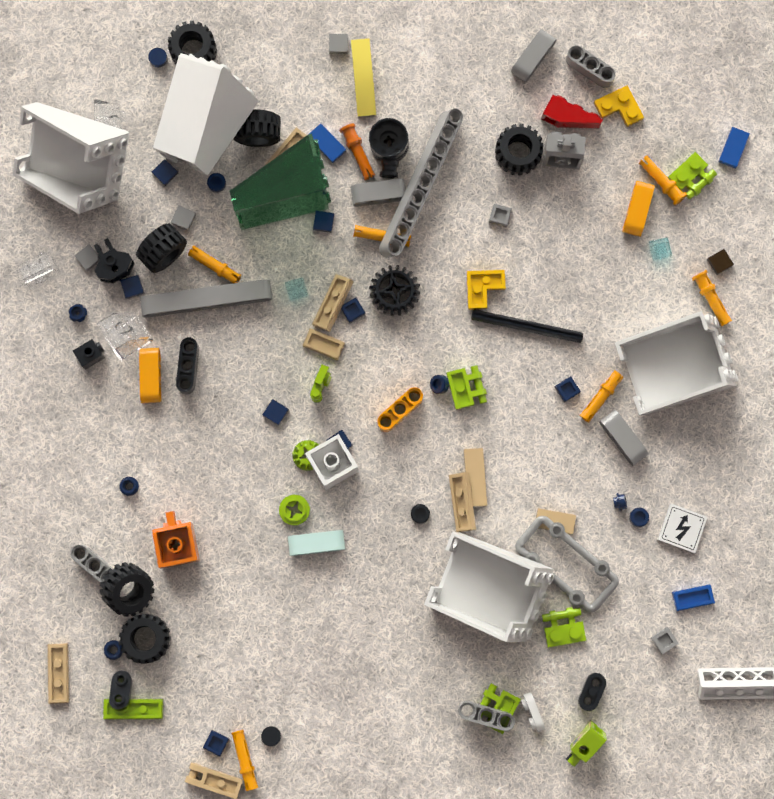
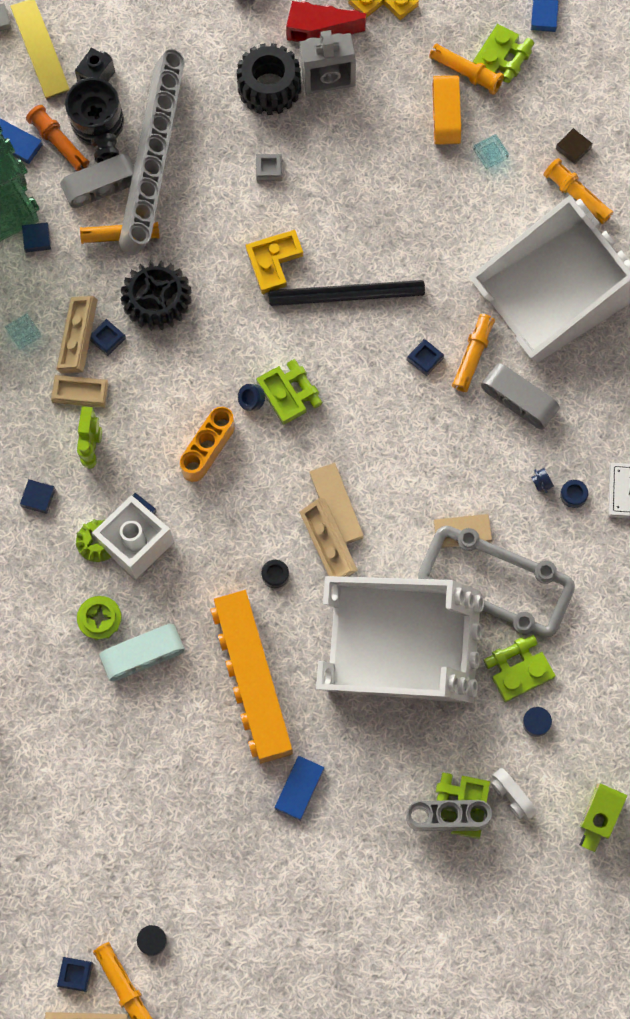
camera: 15 degrees left, 10 degrees down
(384, 581) = (252, 676): none -> light orange brick
(394, 664) = (299, 788): none -> blue tile
(398, 105) = (95, 65): none -> black brick
(564, 667) = (537, 721): none -> dark blue tile
(591, 691) = (584, 743): black plate -> none

